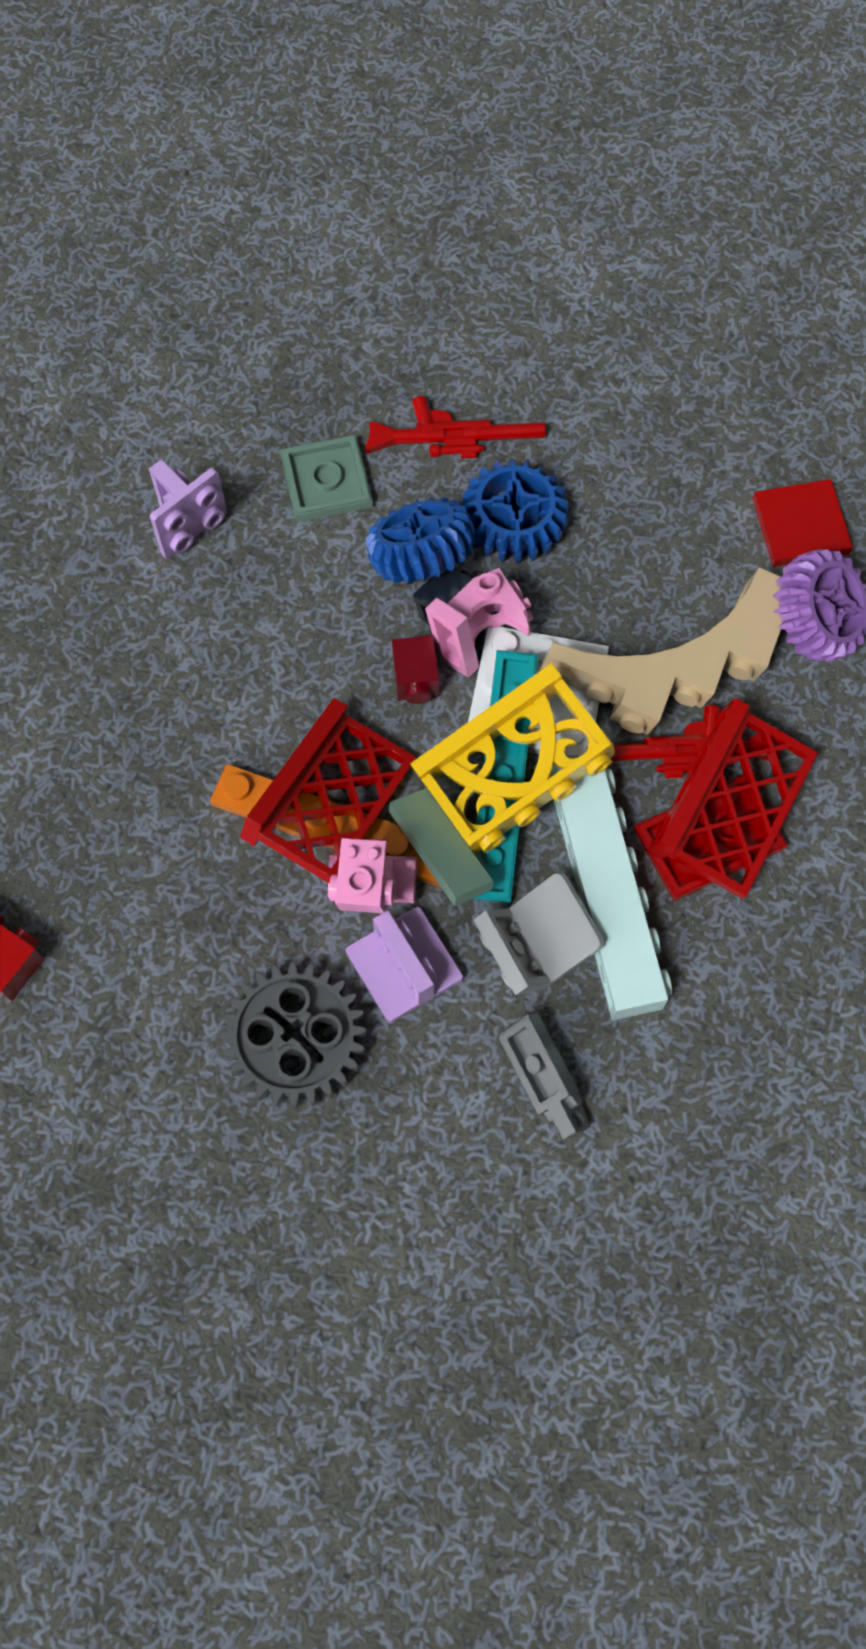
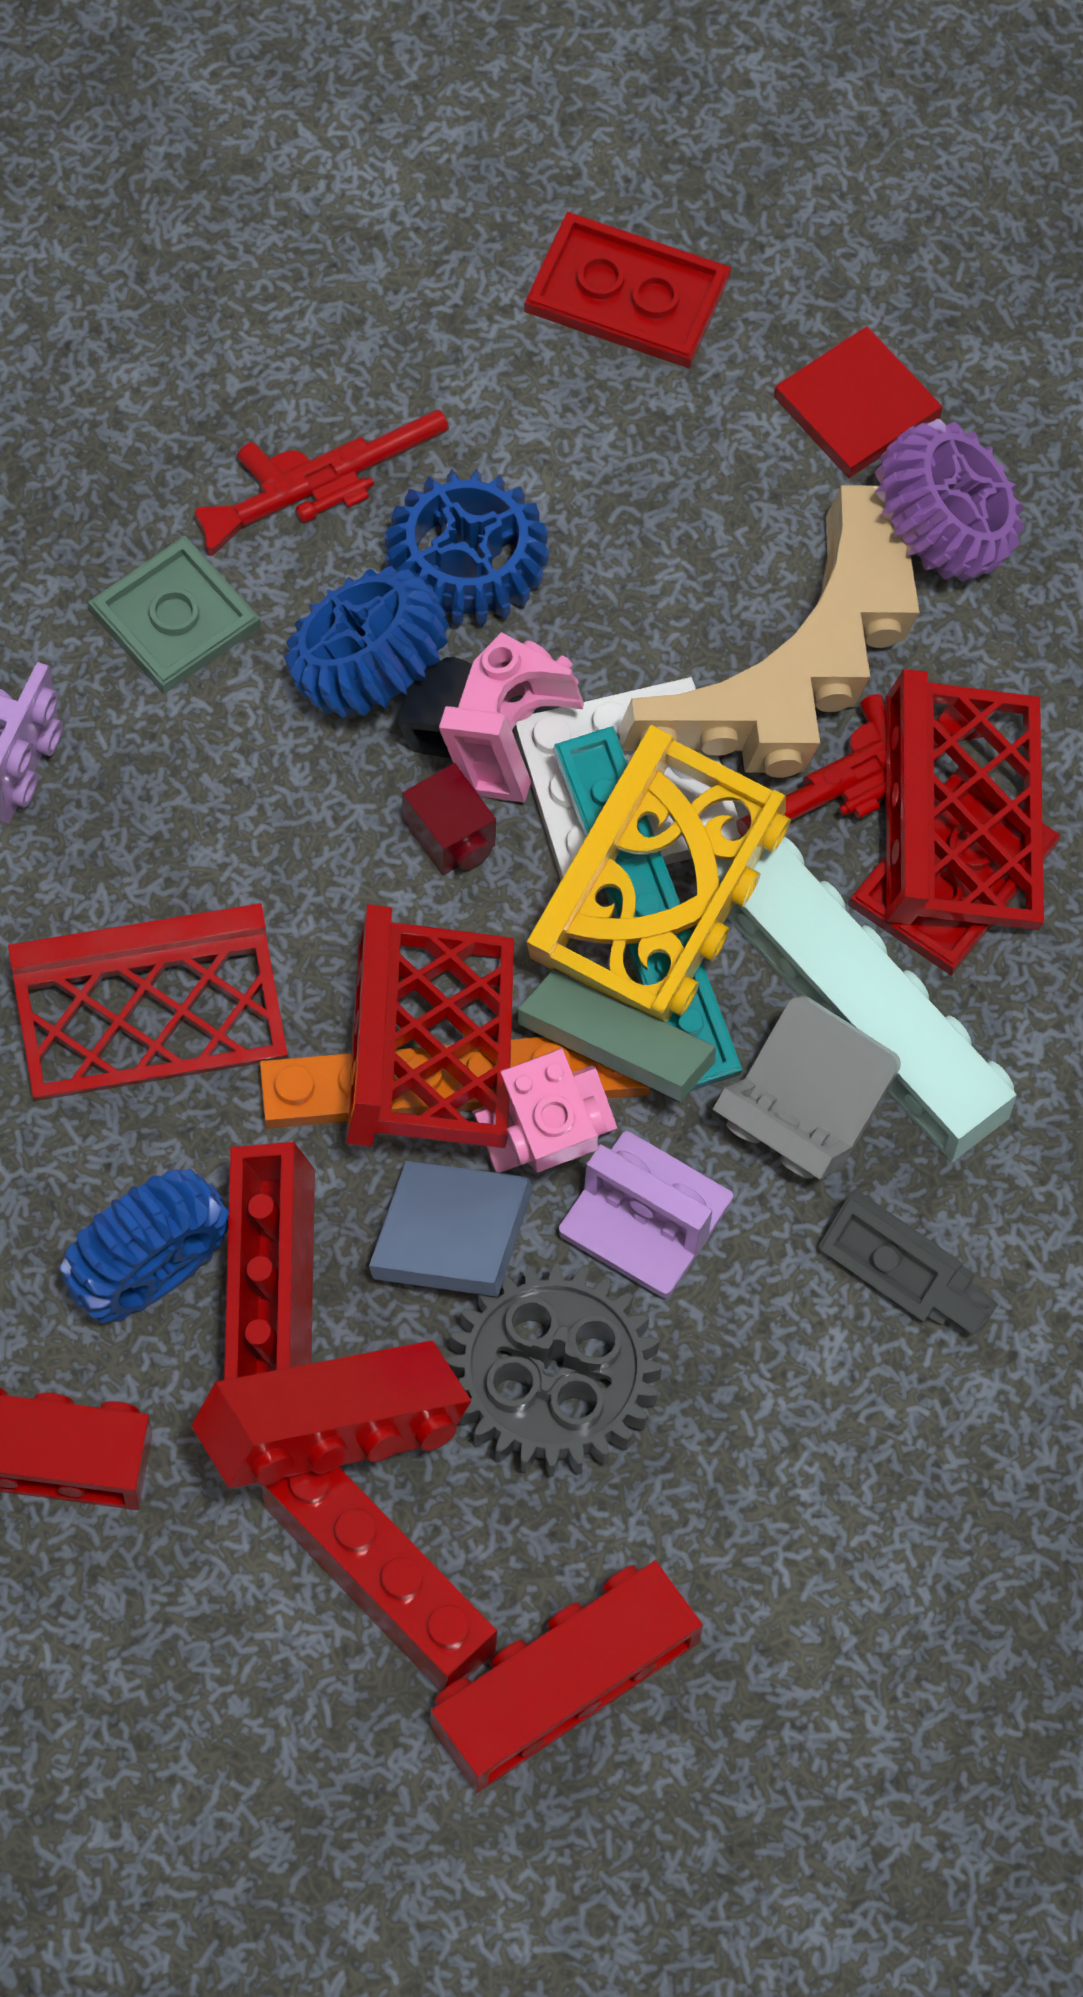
camera: 30 degrees left, 5 degrees down
(90, 844) = (145, 1245): none -> blue gear
(120, 1110) = (383, 1573): none -> red brick
(131, 1002) = (330, 1414): none -> red brick
(152, 901) = (269, 1259): none -> red brick
(190, 664) = (138, 949): none -> red fence
(193, 1232) = (564, 1675): none -> red brick
(279, 918) = (451, 1228): none -> sand blue tile
(696, 398) = (627, 289): none -> red tile

